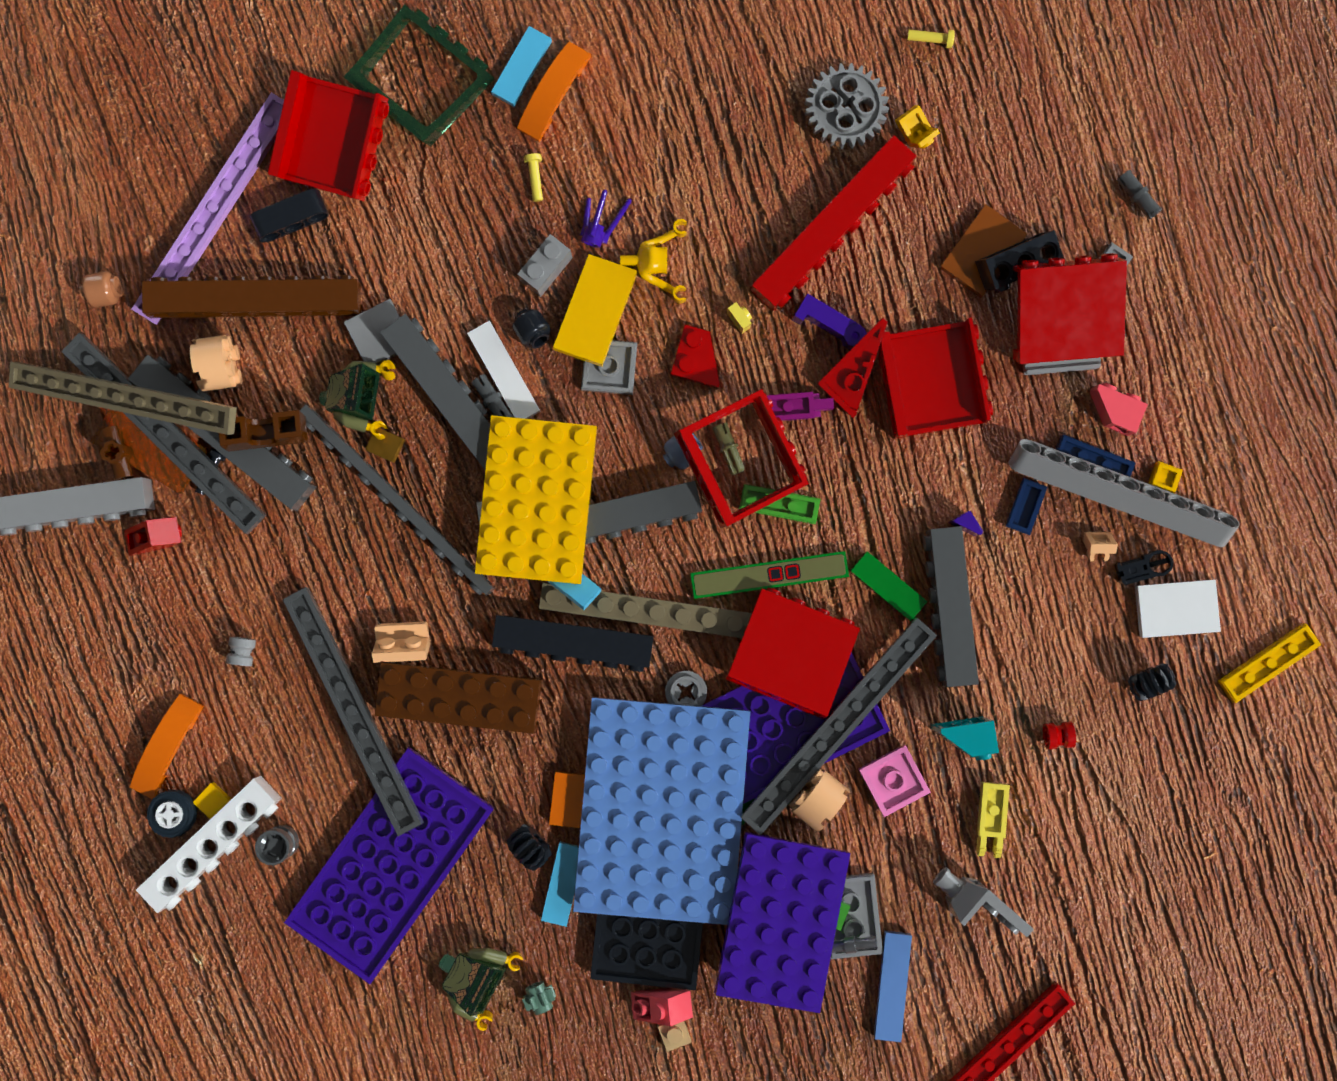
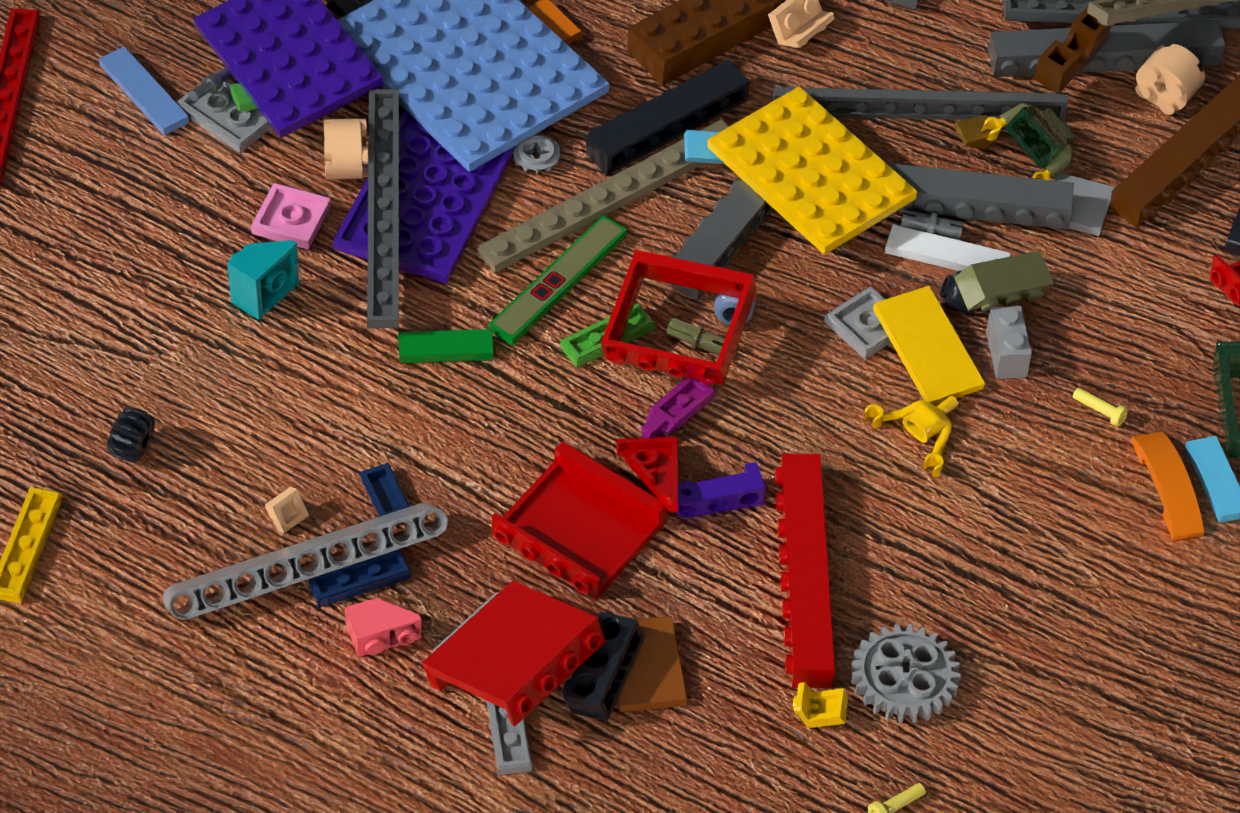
camera: 135 degrees right, 35 degrees down
(505, 303) = (1004, 281): none -> olive brick
(592, 232) = (999, 401): dark purple plant -> none
(696, 358) = (803, 382): red wing -> none
(740, 317) = (802, 433): light yellow plate -> none
(793, 653) = (479, 228): red panel -> none
(951, 607) = (374, 366): dark grey brick -> none
(967, 896) = (125, 182): light grey plate -> none
(968, 523) = (425, 434): dark purple slope -> none
(992, 817) = (176, 251): light yellow hinge -> none
(1059, 735) = (176, 344): red wheel -> none
(1140, 569) = (227, 522): black piece -> none
(1165, 476) = (275, 615): yellow tile -> none
(1177, 608) = (158, 521): white tile -> none

